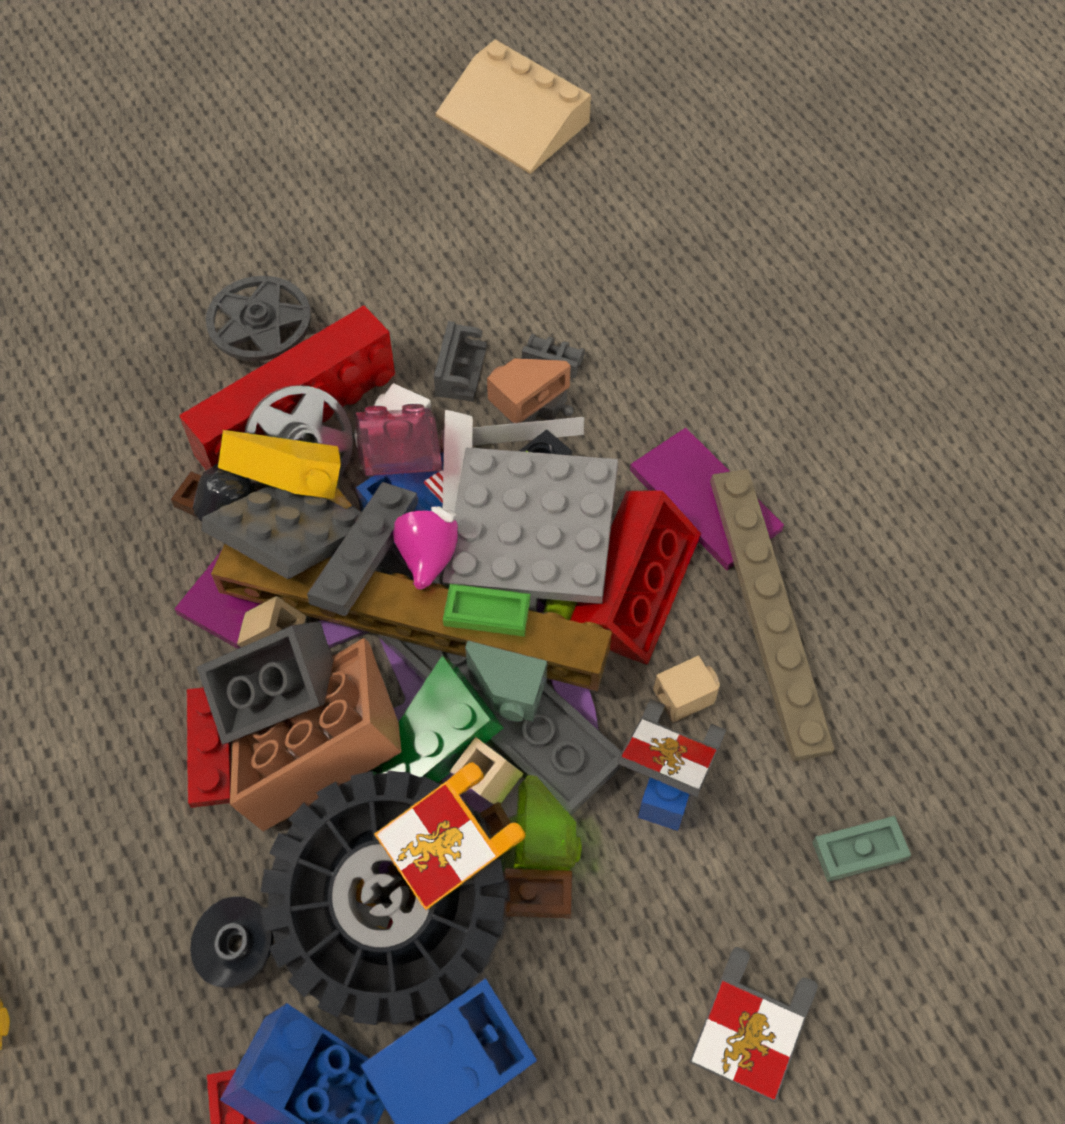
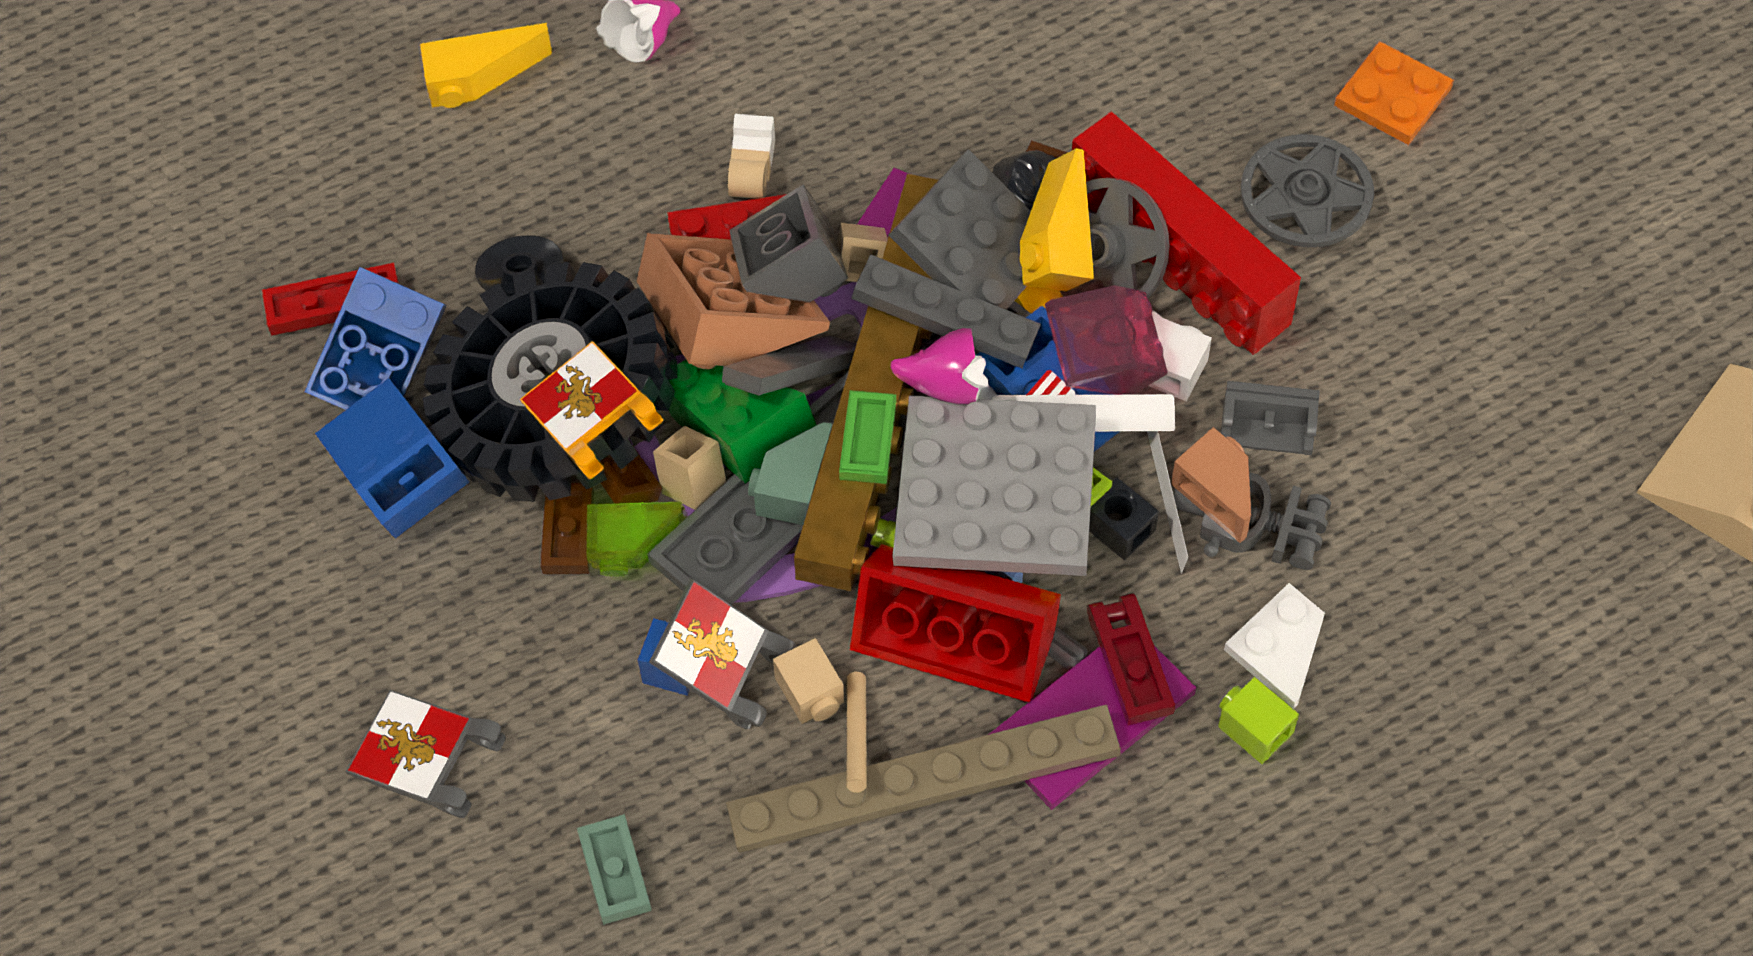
camera: 90 degrees right, 0 degrees up
(140, 726) = (751, 156): none -> leg
(170, 263) = (1394, 93): none -> orange plate
(410, 680) = (790, 365): none -> dark grey tile
(645, 376) = (1279, 643): none -> white wing
(669, 459) = (1131, 660): none -> dark red plate
(714, 390) = (1257, 719): none -> lime brick
(737, 651) = (856, 732): none -> tan bar

